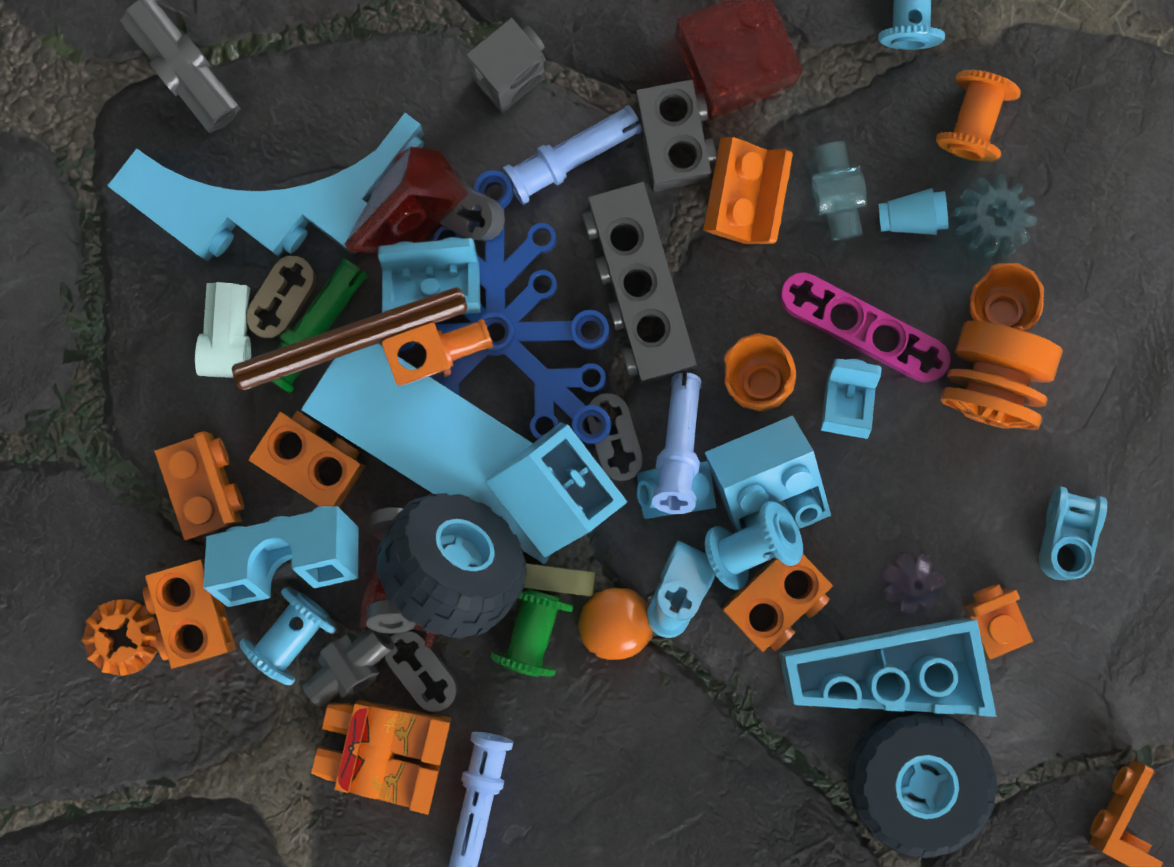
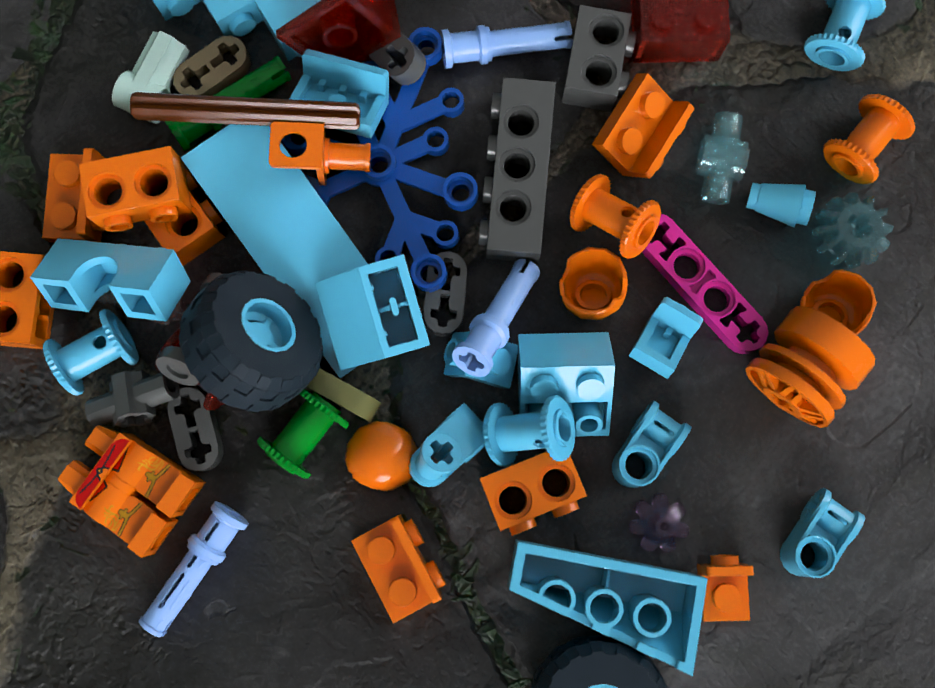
camera: 25 degrees right, 5 degrees down
(266, 448) = (136, 177): none -> orange brick
(676, 725) = (398, 567): none -> orange bracket
(755, 296) = (617, 217): none -> orange hose
(875, 509) = (654, 440): none -> medium azure piece

